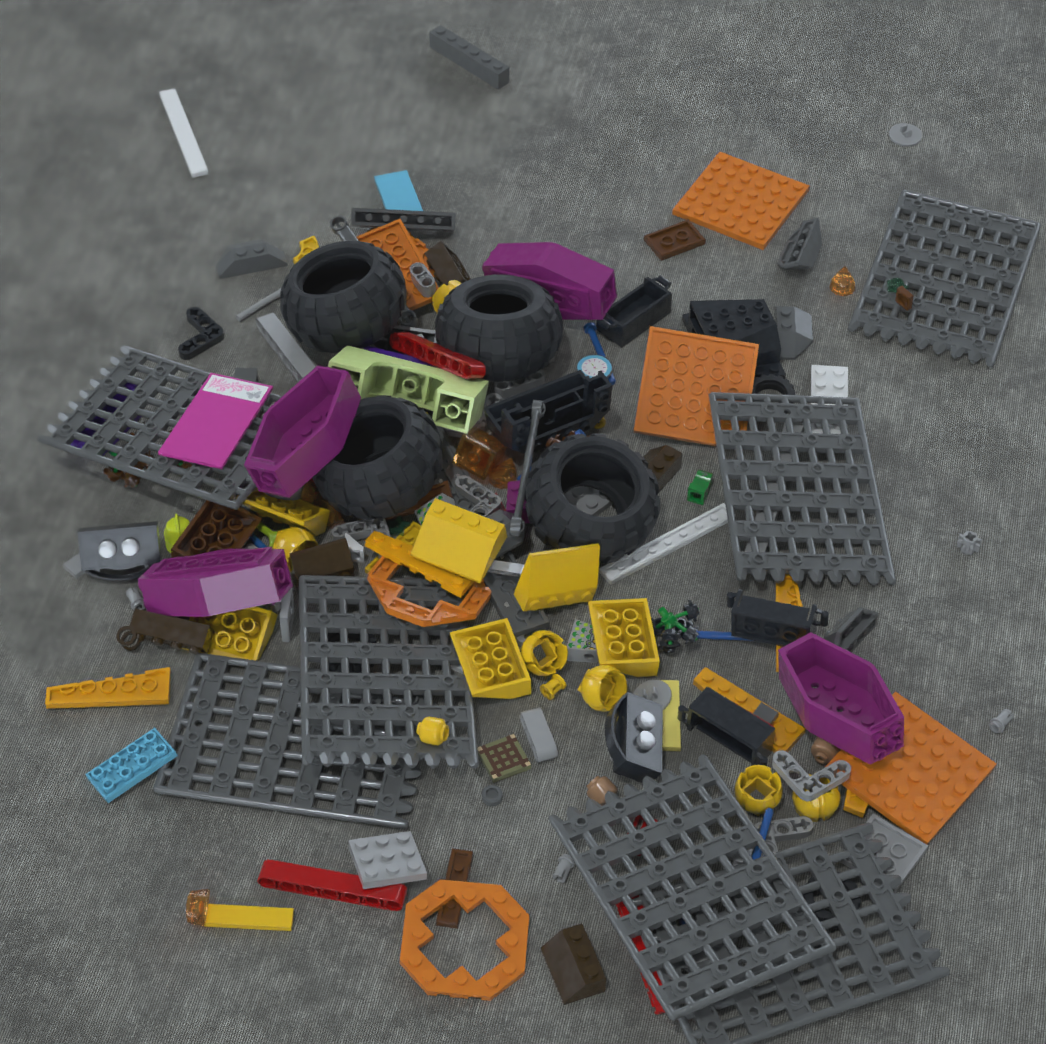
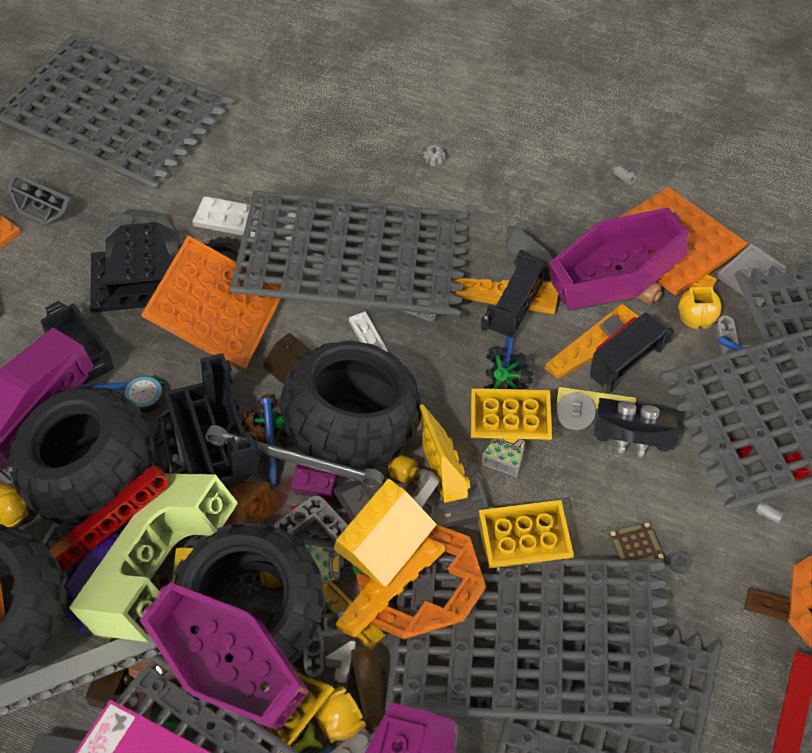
camera: 80 degrees left, 5 degrees up
(387, 860) = (766, 664): light grey plate -> none
(433, 730) = (632, 590): yellow head -> none
(538, 734) = (613, 510): light grey beam -> none
(553, 686) = (555, 489): yellow bush -> none
(555, 653) = (522, 486): yellow piece -> none
(598, 788) = (685, 466): medium nougat head -> none
(603, 687) = (571, 445): yellow piece -> none
(700, 485) = (324, 331): green leg -> none
(760, 779) = (701, 336): yellow piece -> none
(806, 781) = (702, 298): light grey beam -> none
(843, 282) = (92, 181): clear orange piece -> none
(894, 284) = (117, 140): clear green plate -> none
(904, 298) = (140, 135): reddish brown tile -> none

